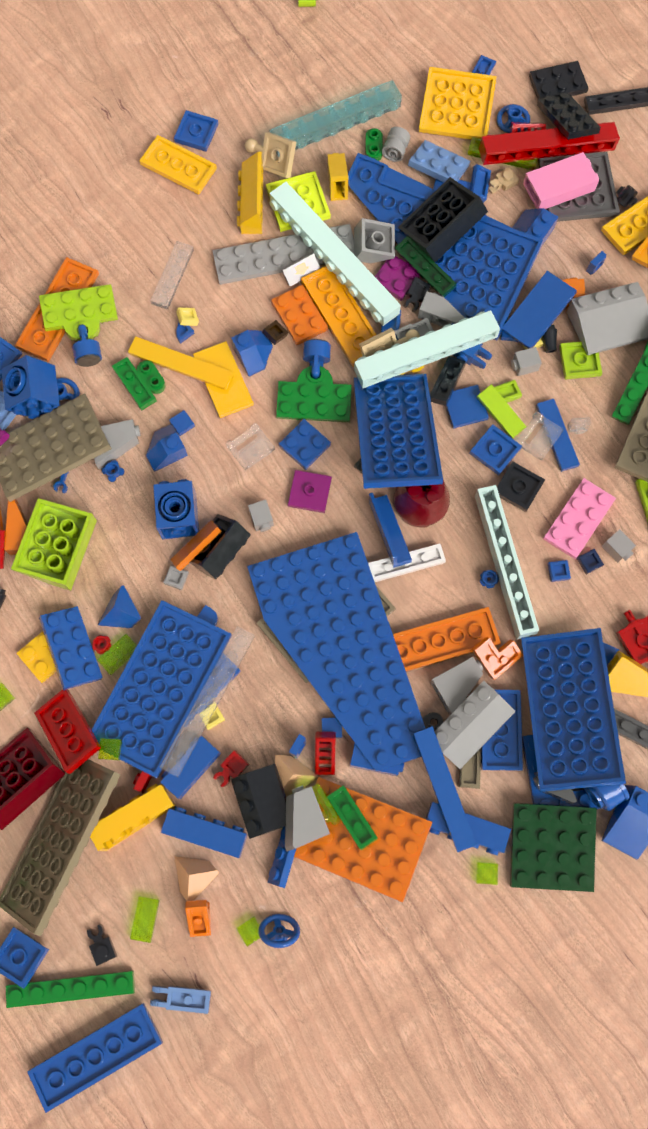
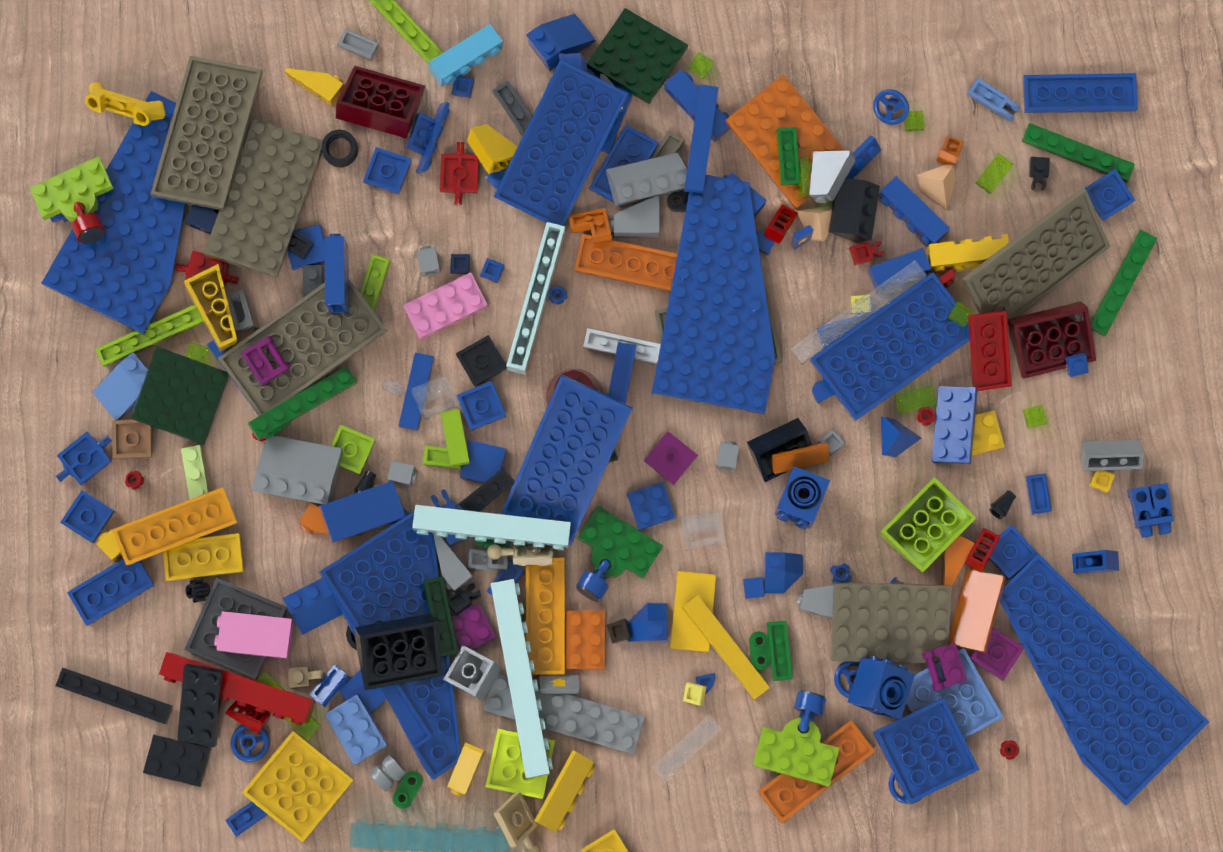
camera: 150 degrees left, 5 degrees up
(596, 263) = (272, 536): blue tile -> none

